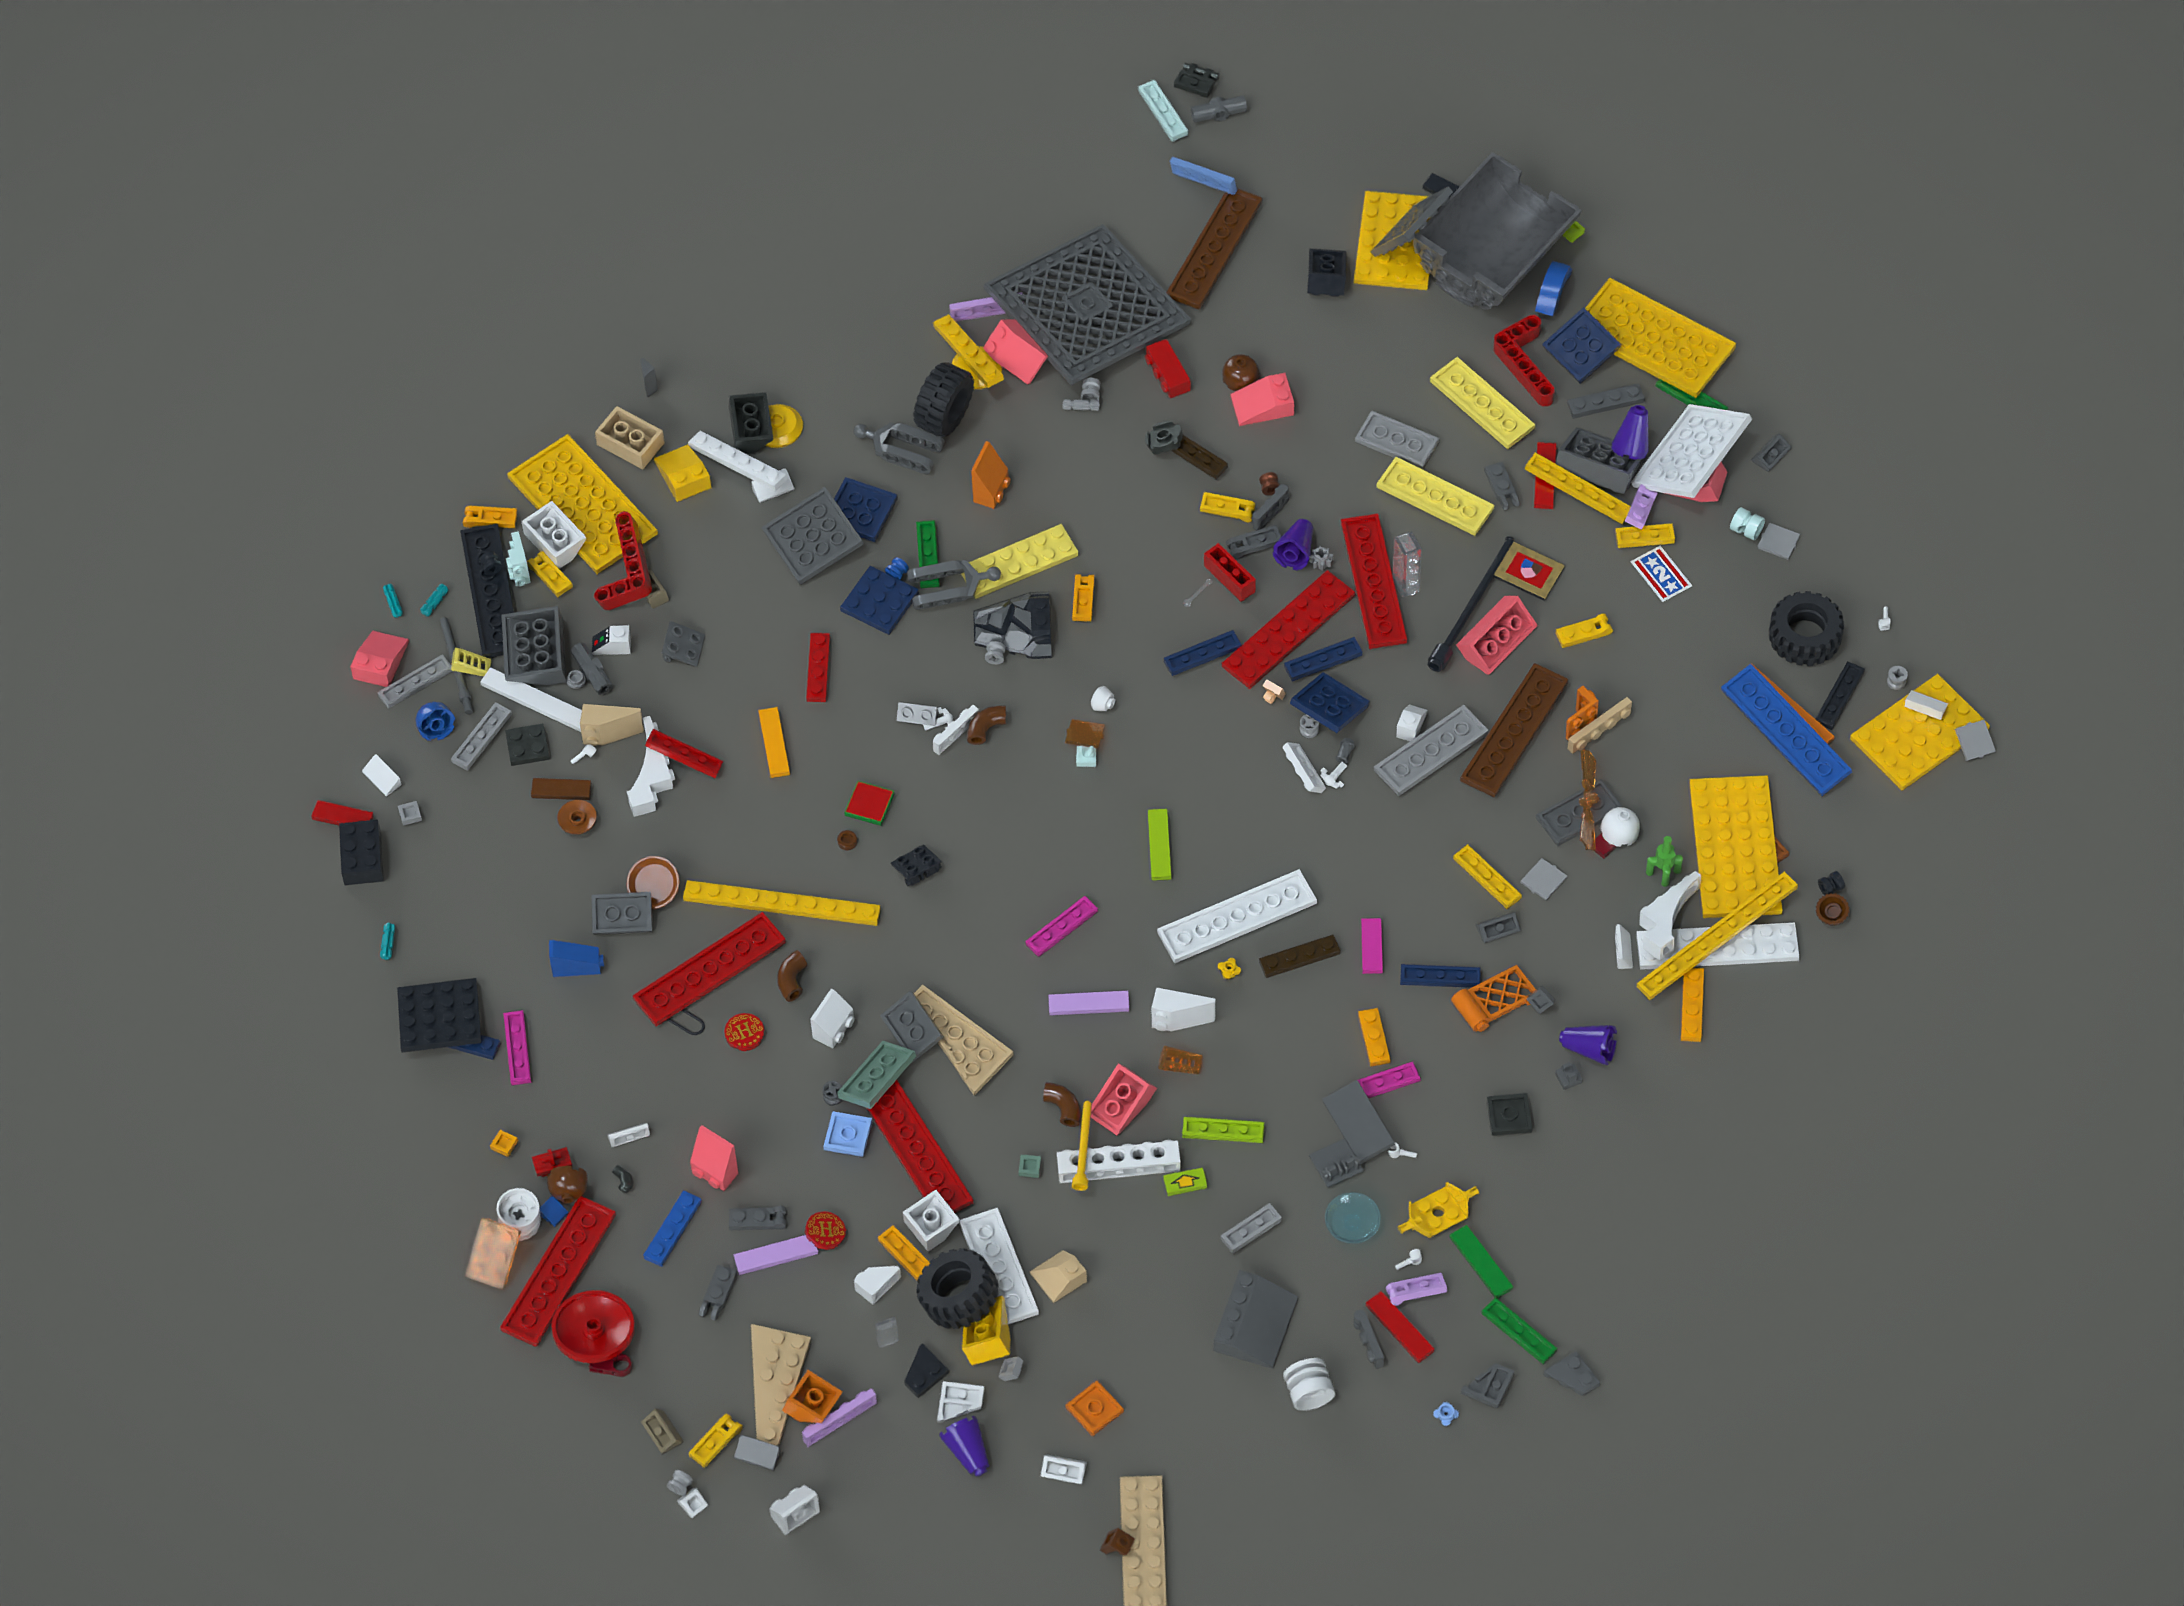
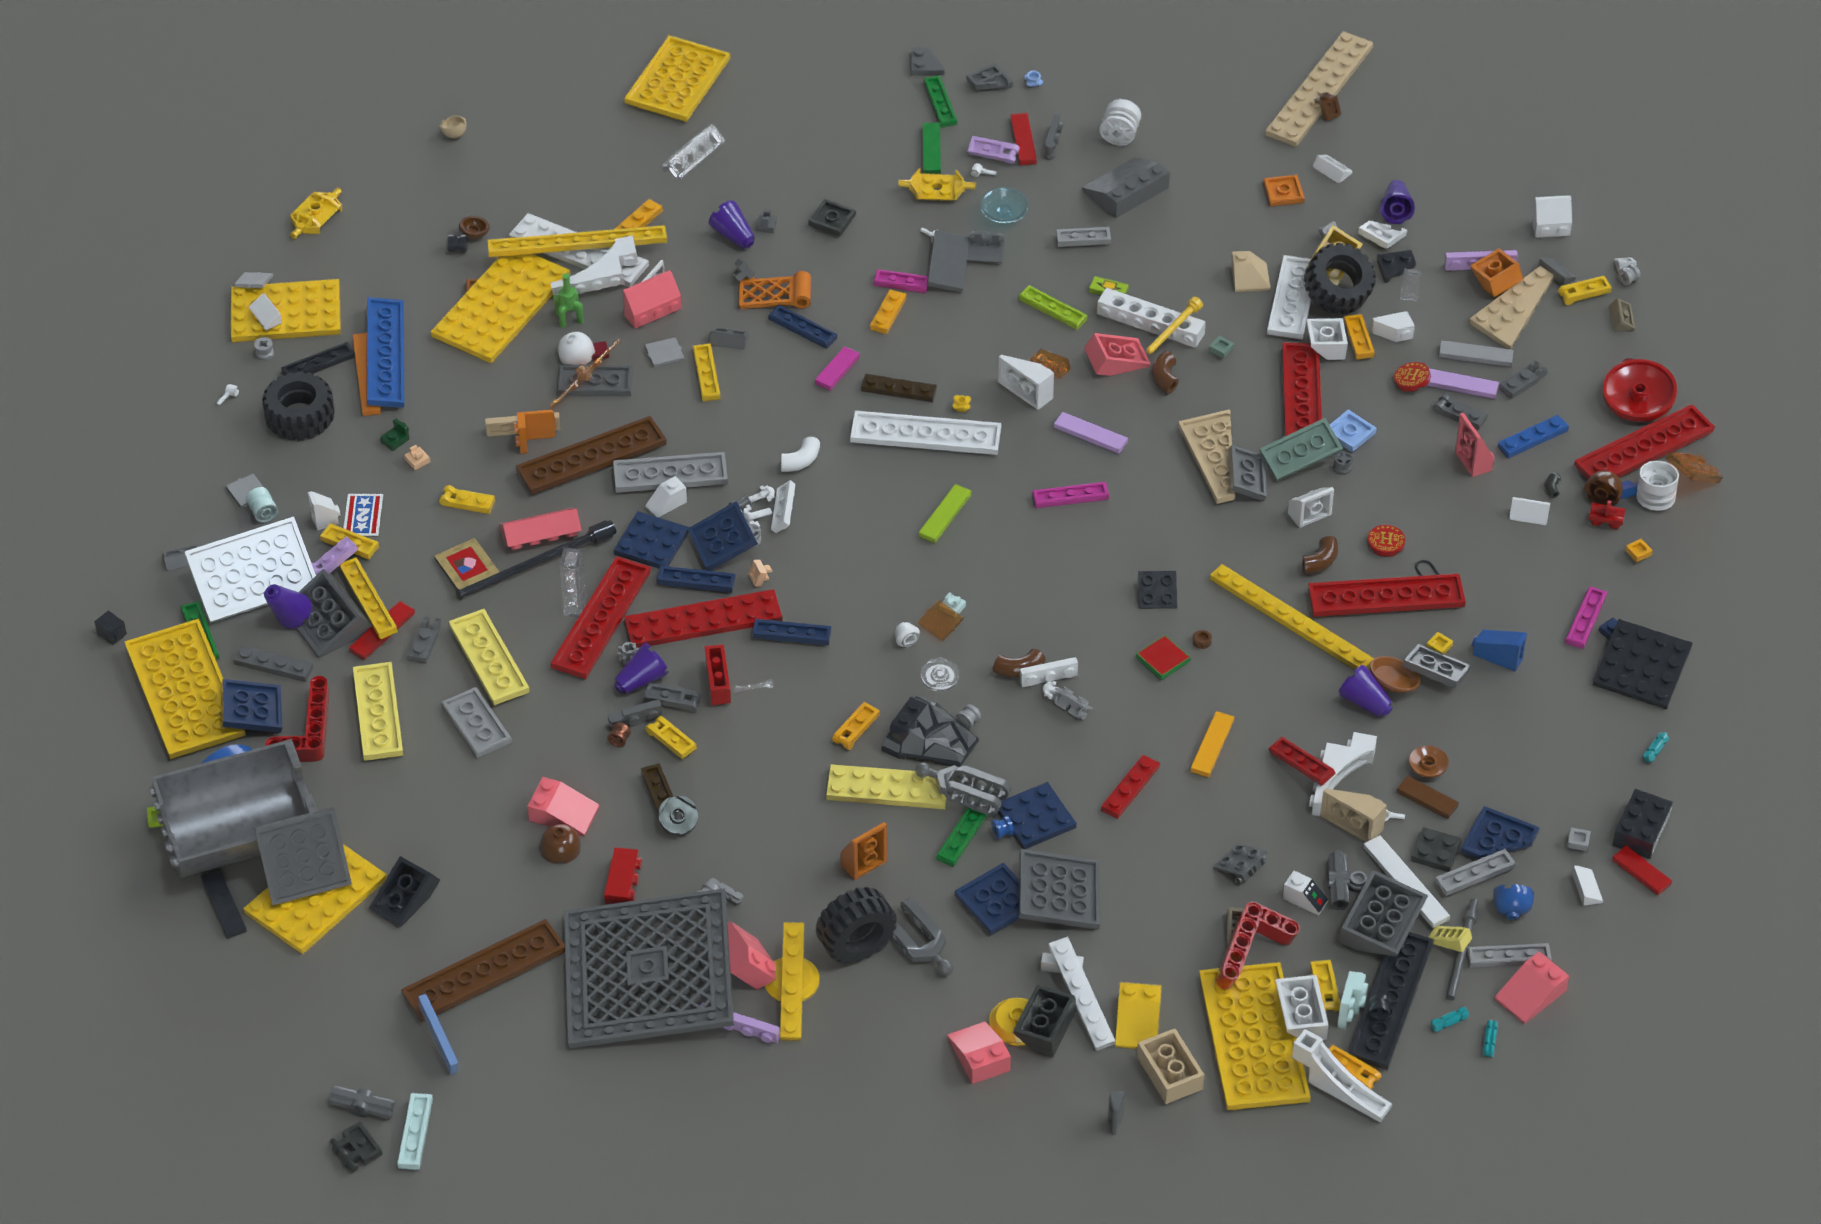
camera: 150 degrees left, 10 degrees down
(481, 781) = (1497, 832): none -> dark blue plate
(492, 493) = (1334, 1079): none -> white arch
(632, 942) = (1440, 643): none -> yellow plate
(673, 847) = (1366, 692): none -> dark purple cone
(781, 1299) = (1476, 353): none -> light grey tile
(788, 381) = (980, 1052): none -> coral slope
(1050, 685) = (939, 674): none -> clear tile
(1326, 825) = (802, 457): none -> white cylinder
(1327, 745) = (755, 515): none -> white piece
(1393, 678) = (651, 540): none -> dark blue plate
(1593, 912) = (651, 299): none -> coral slope
(1663, 648) = (416, 457): none -> light nougat tile
(1689, 541) = (323, 510): none -> white slope
(1701, 657) = (396, 436): none -> dark green bracket
(1712, 1116) = (687, 149): none -> clear fence
(1761, 354) = (110, 627): none -> black brick
(1799, 1205) = (677, 78): none -> yellow plate
(1958, 1013) = (453, 126): none -> tan hair
(1990, 861) = (309, 220): none -> yellow plate

